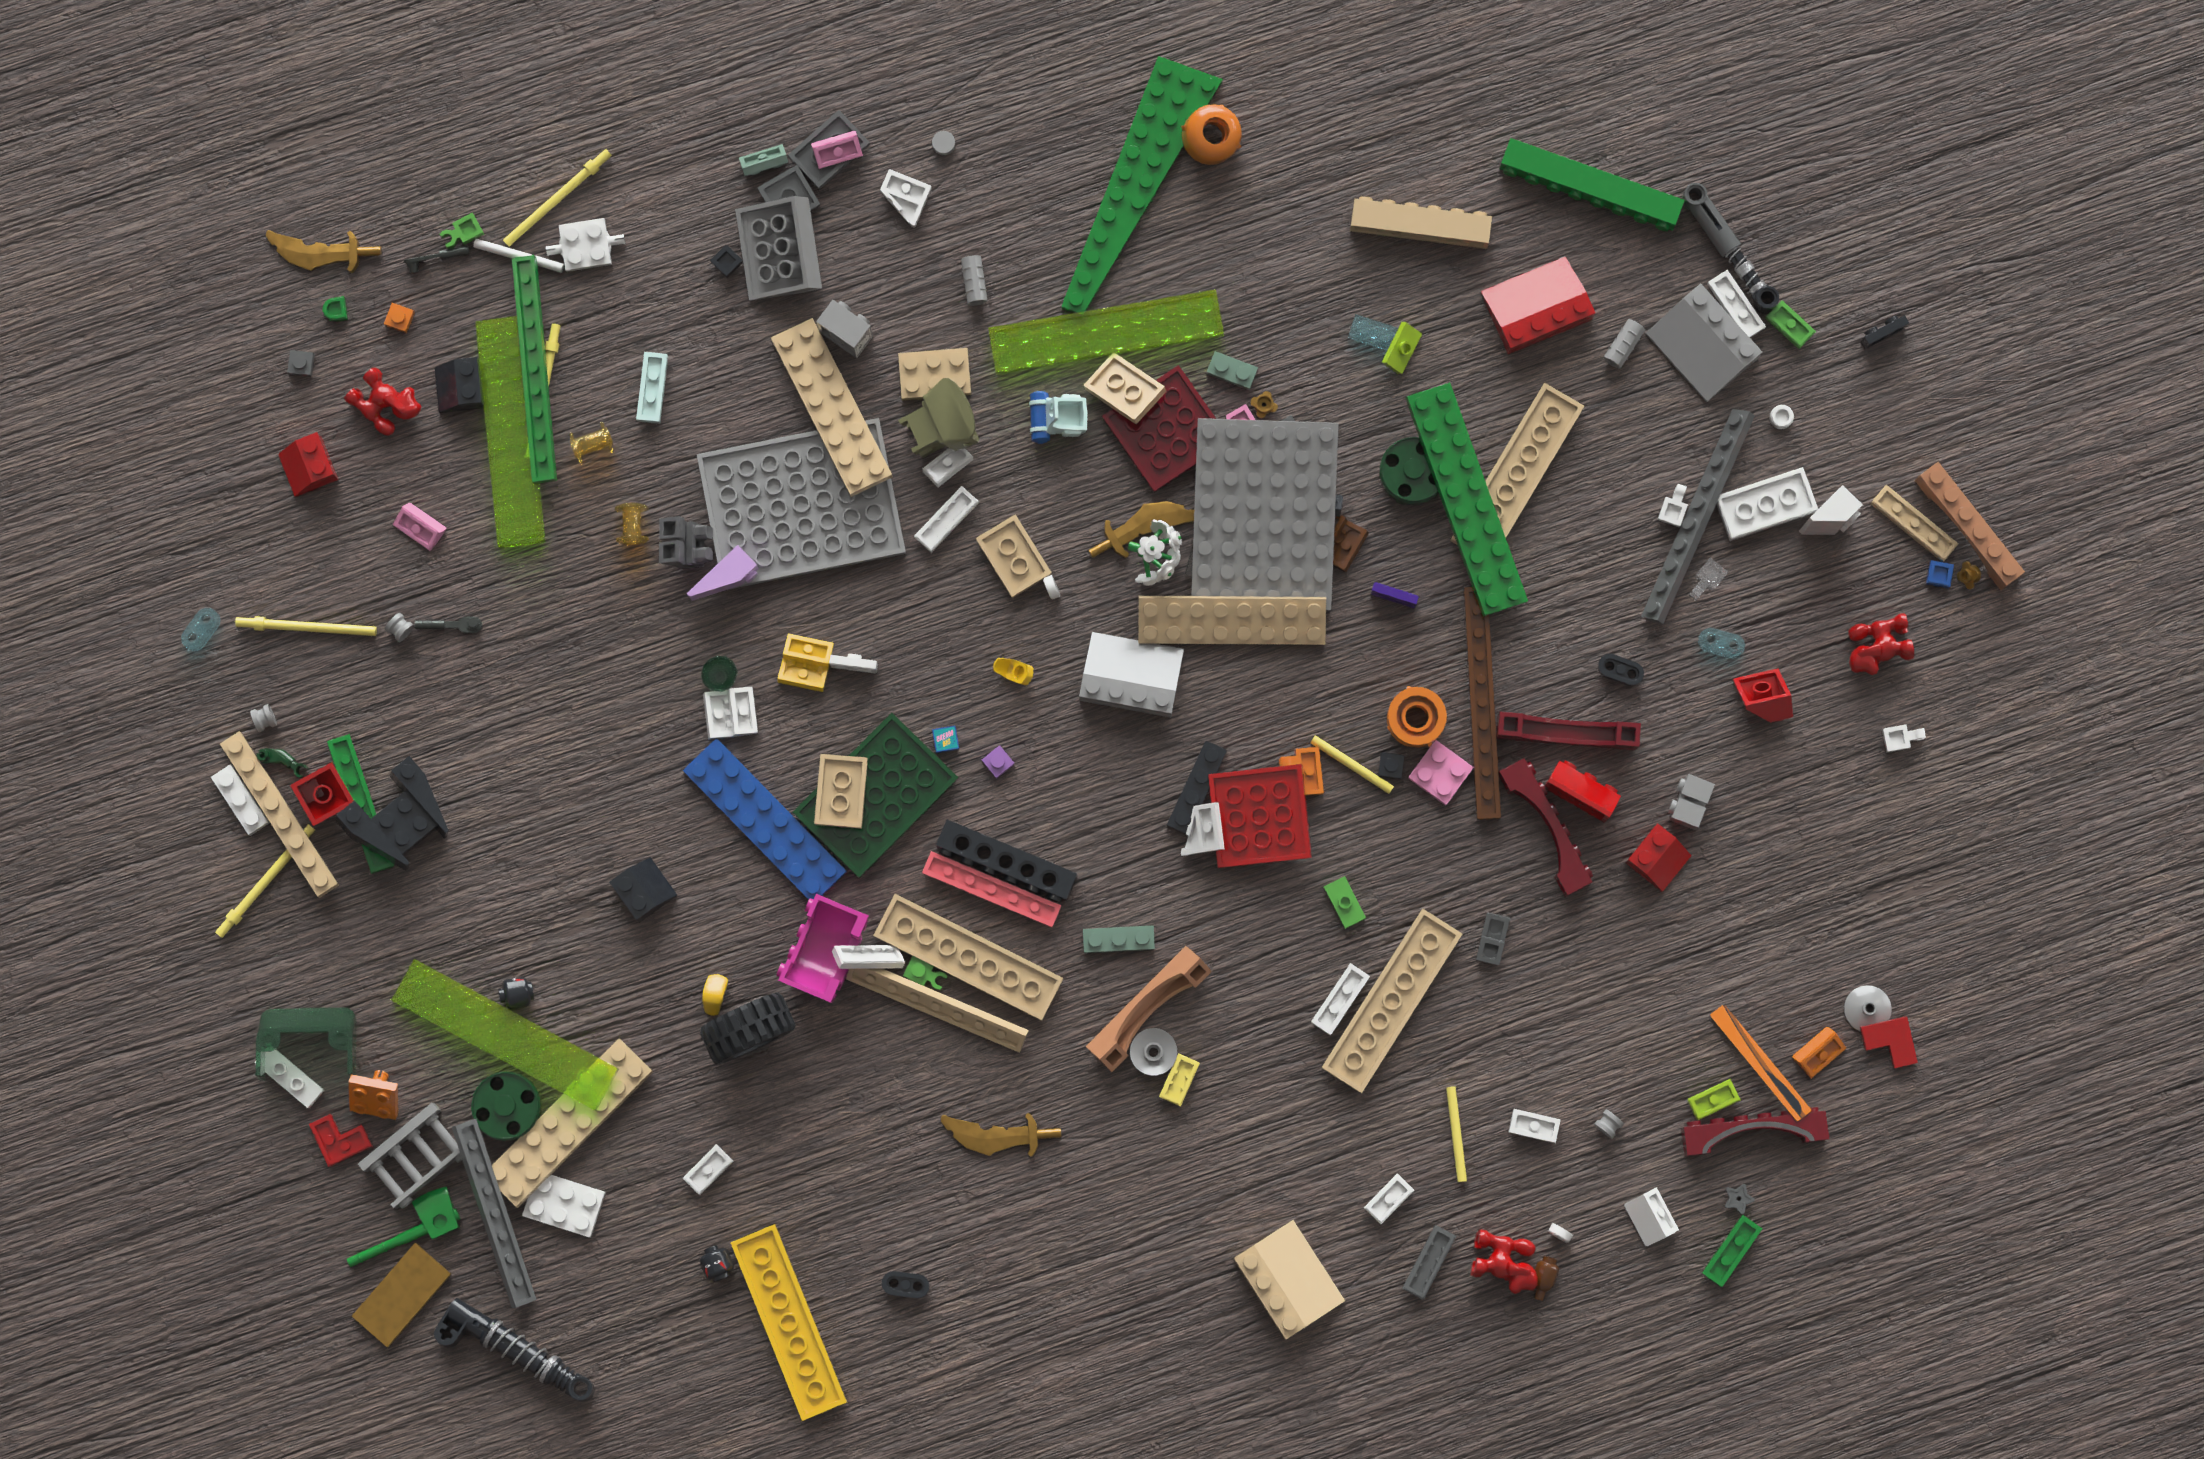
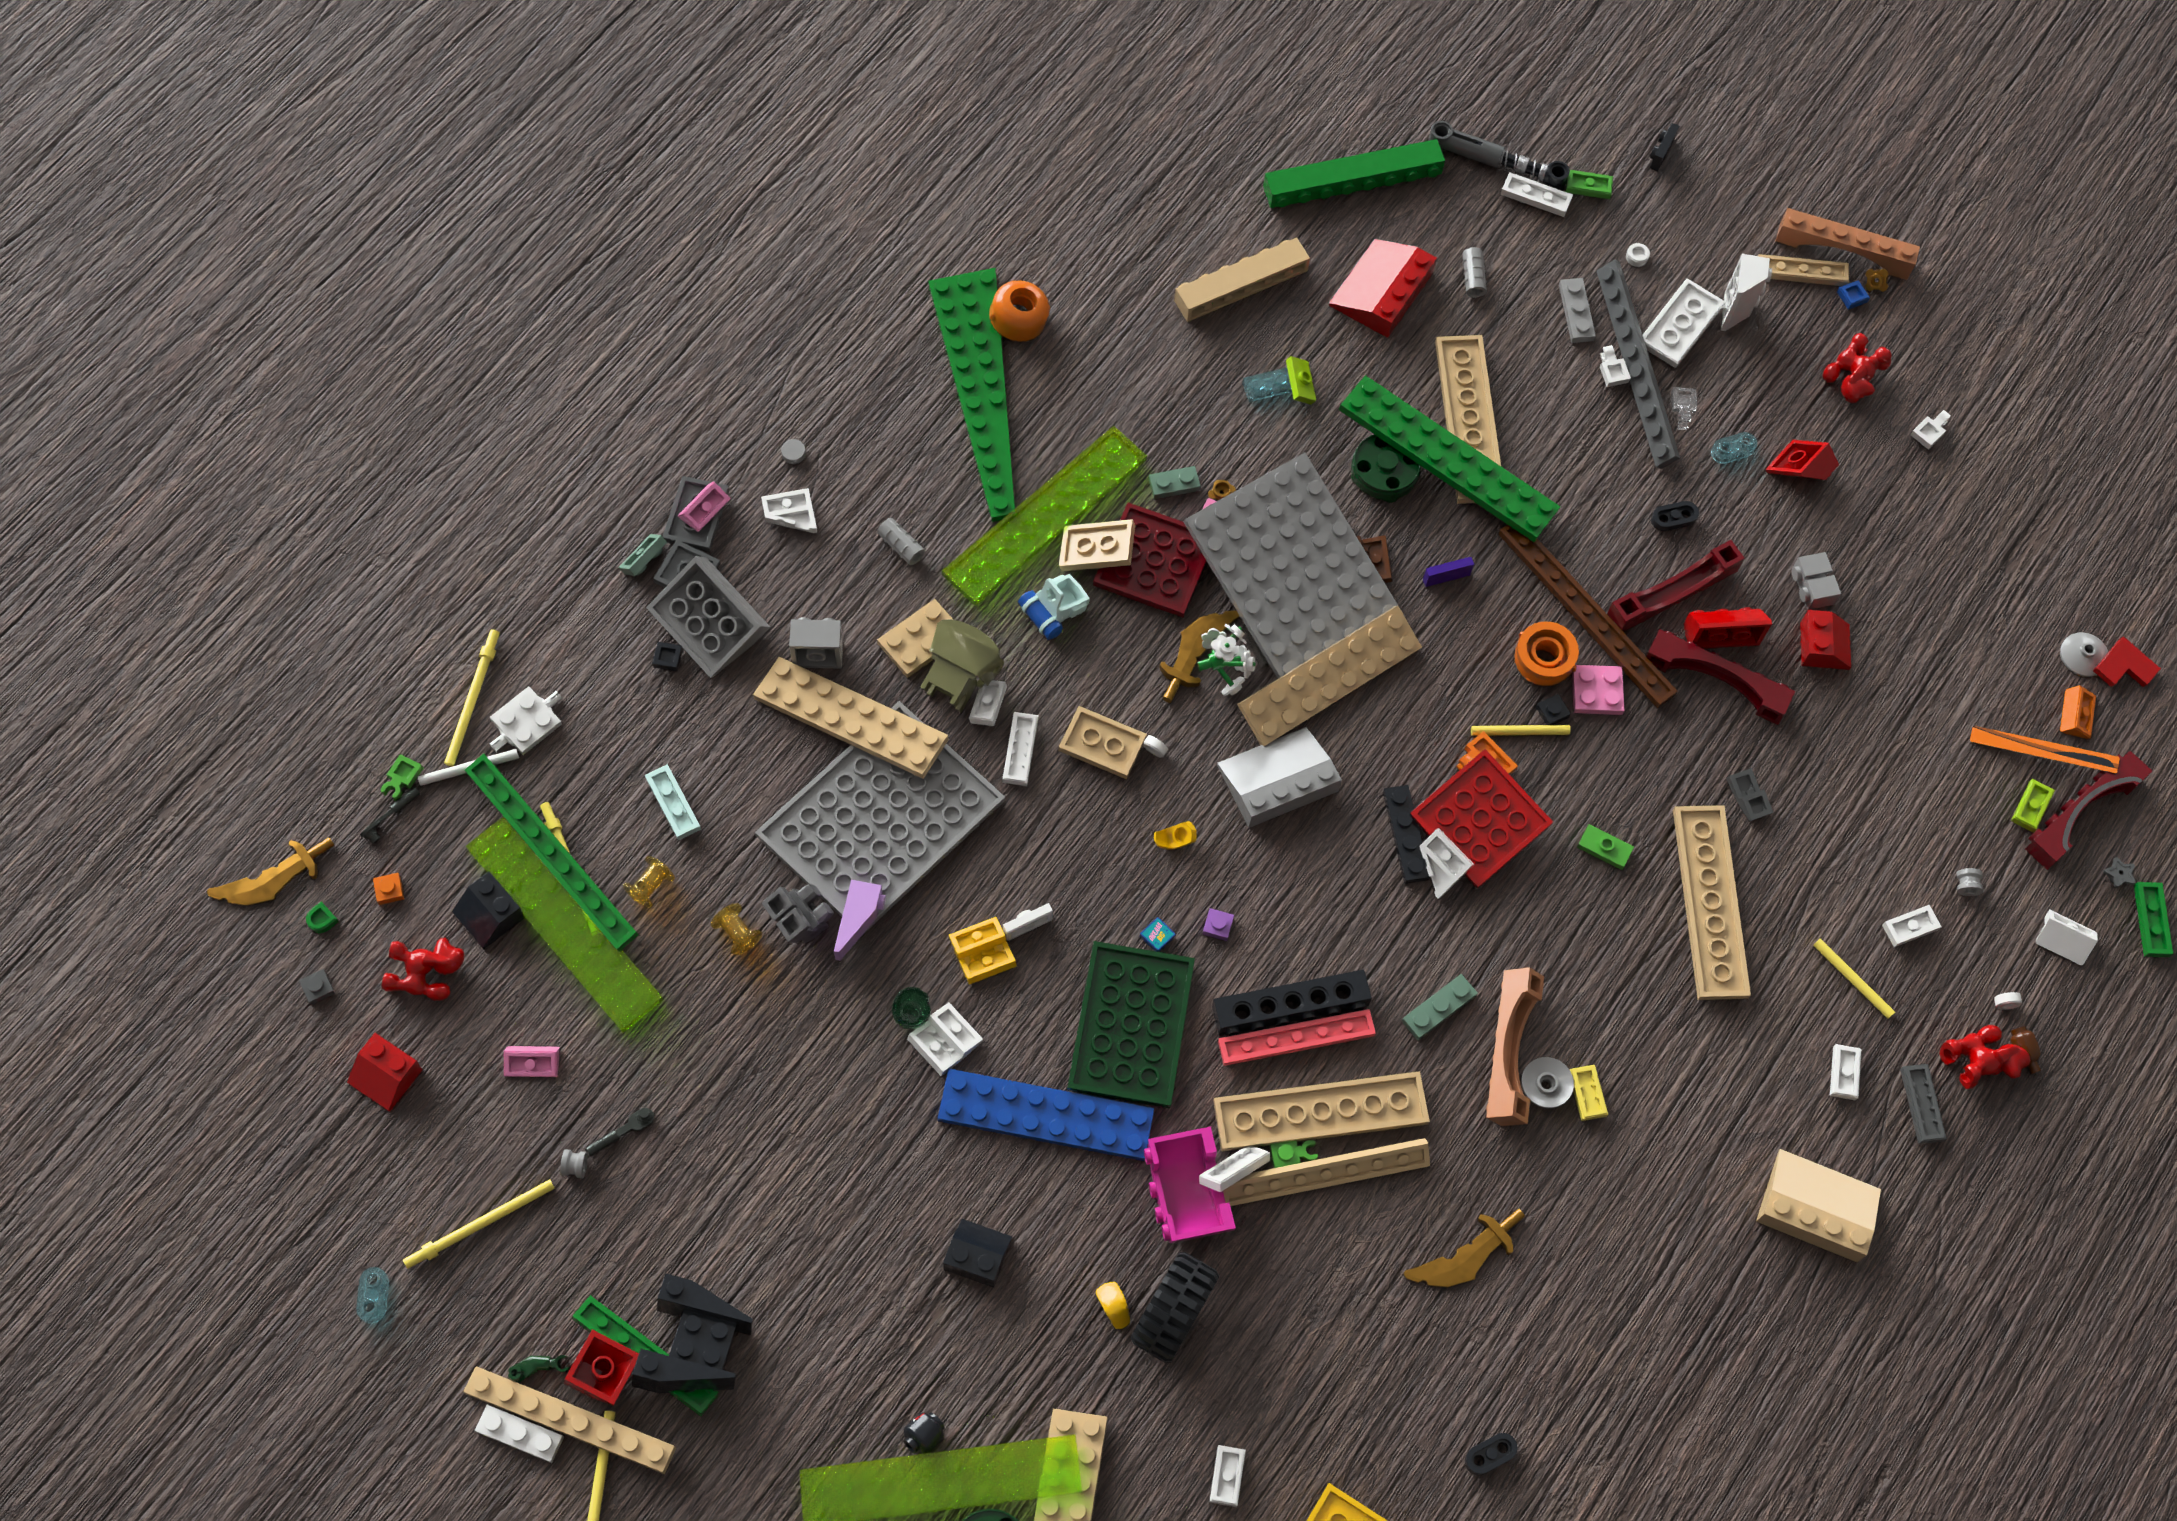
camera: 40 degrees left, 15 degrees down
(263, 718) = (492, 1337): light grey wheel -> none
(841, 791) = (1100, 1037): tan plate -> none
(1340, 999) = (1667, 929): white plate -> none
(1687, 434) = (1577, 310): none -> light grey plate
(1704, 343) = (1535, 234): light grey slope -> none

